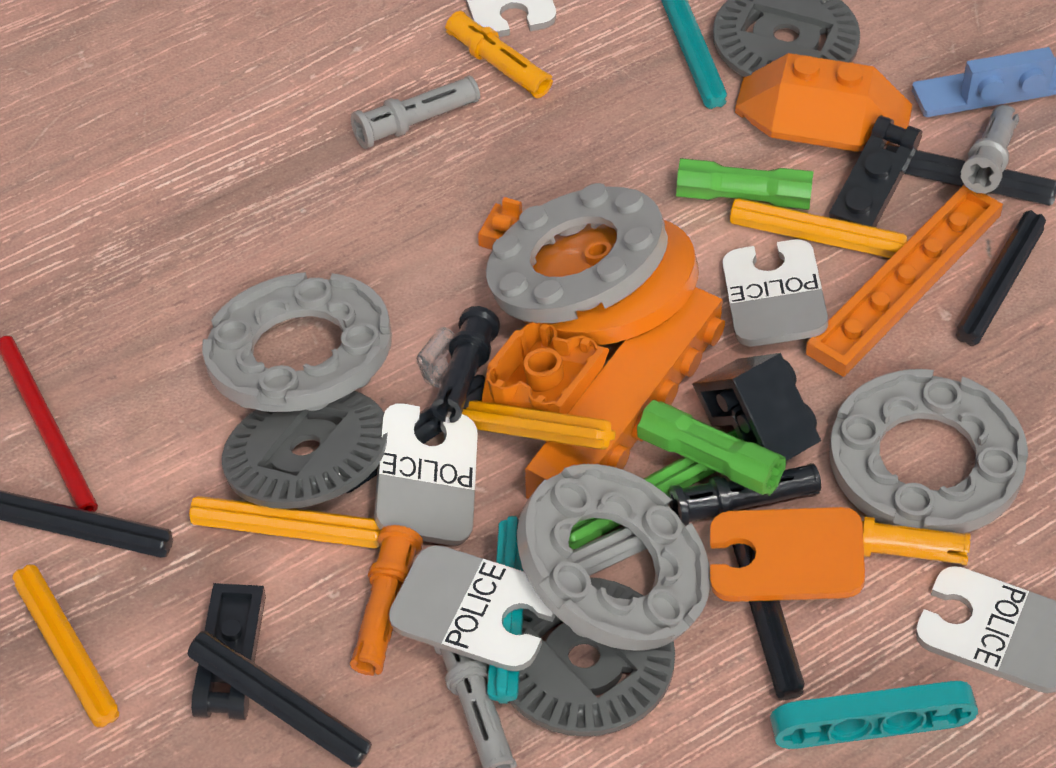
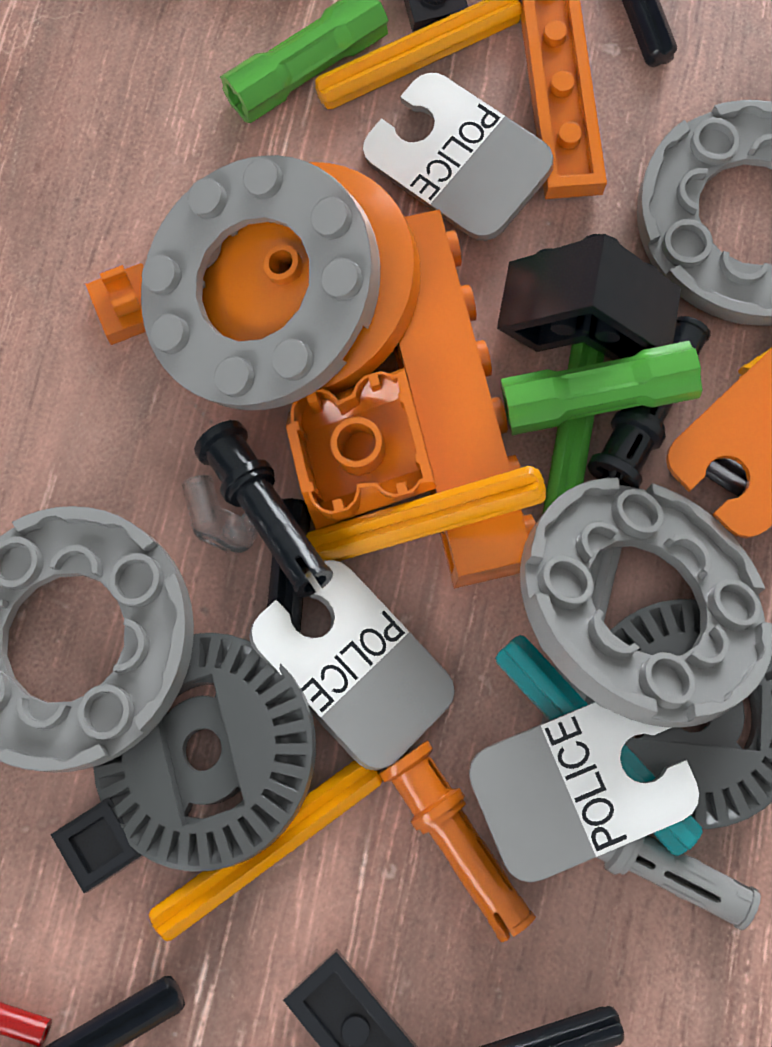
camera: 50 degrees left, 25 degrees up
(204, 452) = (95, 846): none -> black tile

